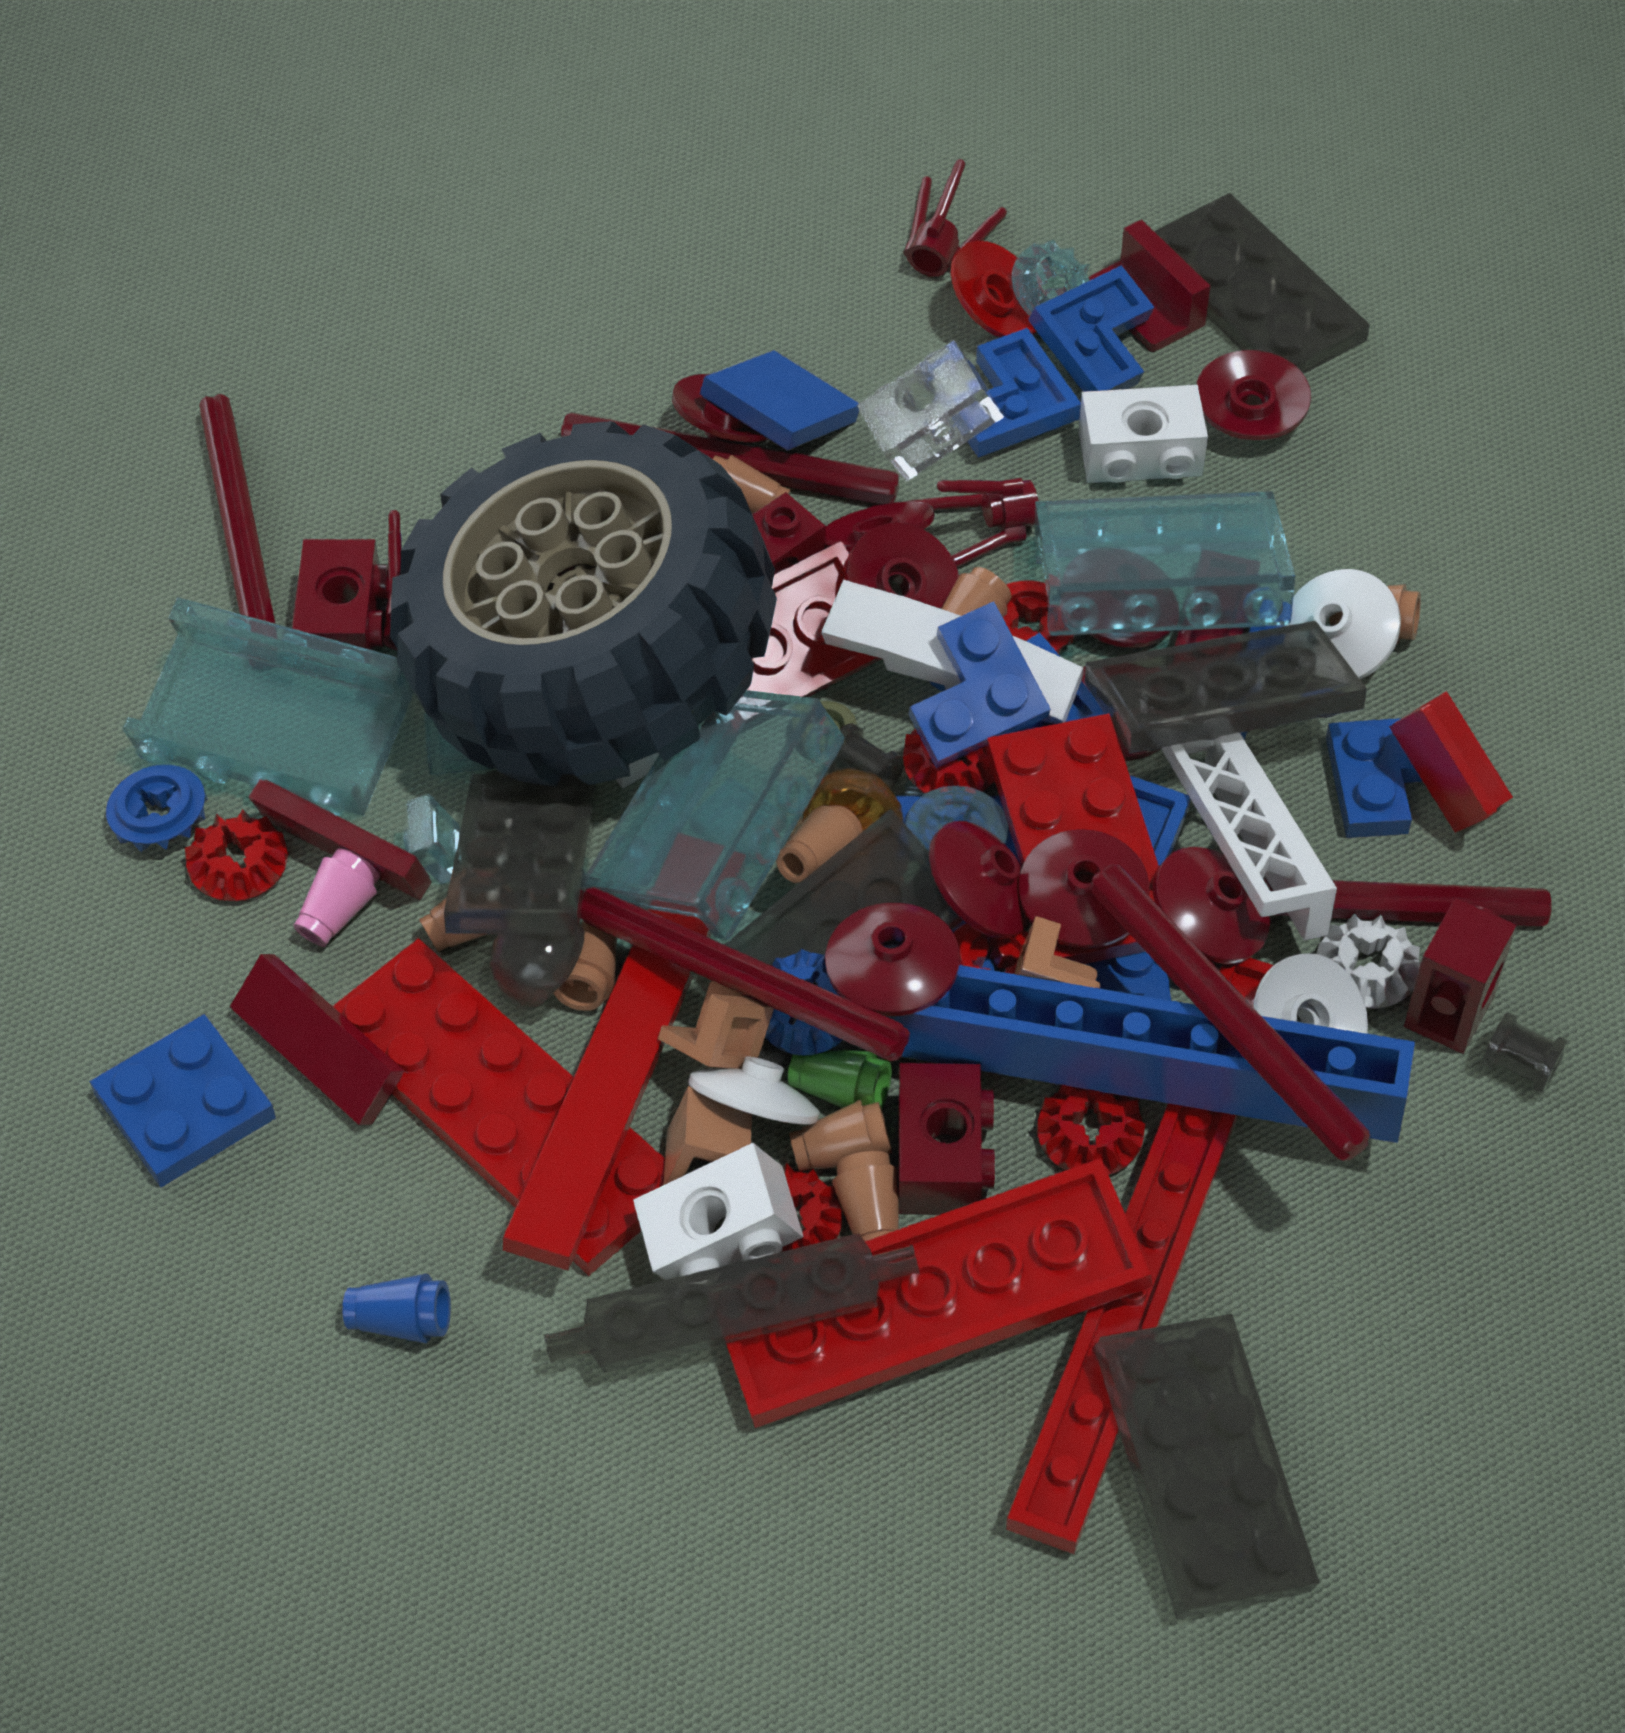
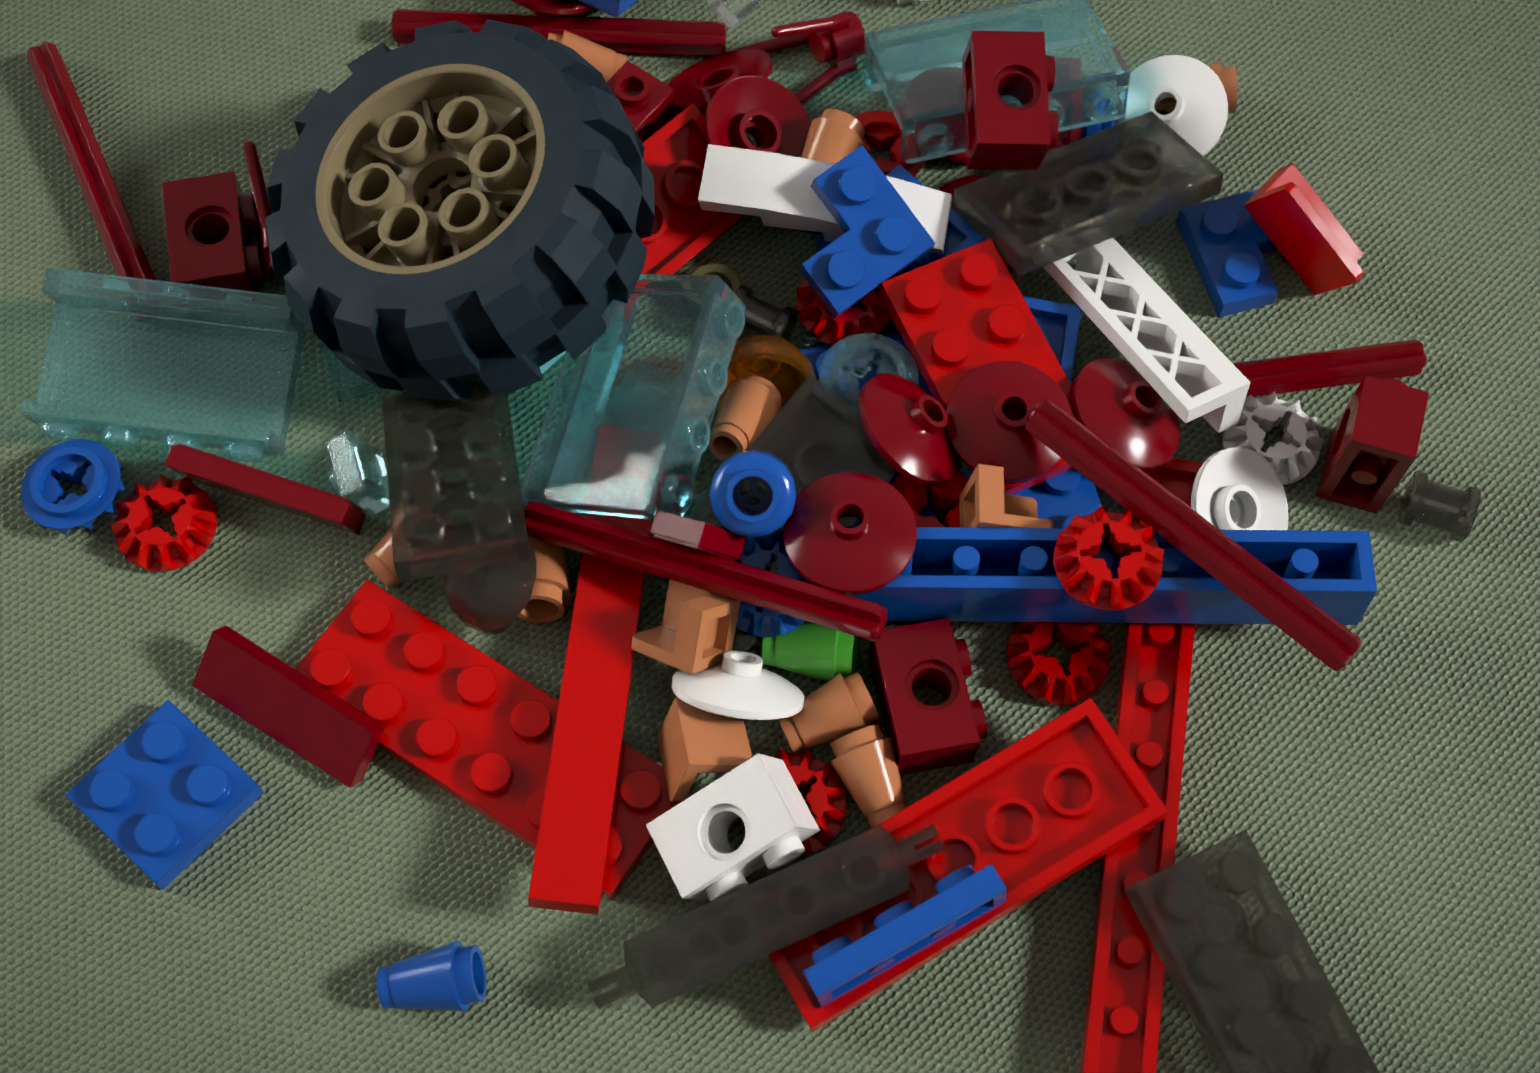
camera: 15 degrees left, 10 degrees up
(336, 896) = (274, 549): bright pink cone -> none
(743, 937) = (697, 535): none -> dark red tile
(783, 899) = (752, 518): none -> blue head
(859, 1337) = (904, 932): none -> blue plate
(1163, 549) = (994, 131): none -> dark red brick
(1167, 1031) = (1089, 578): none -> red gear

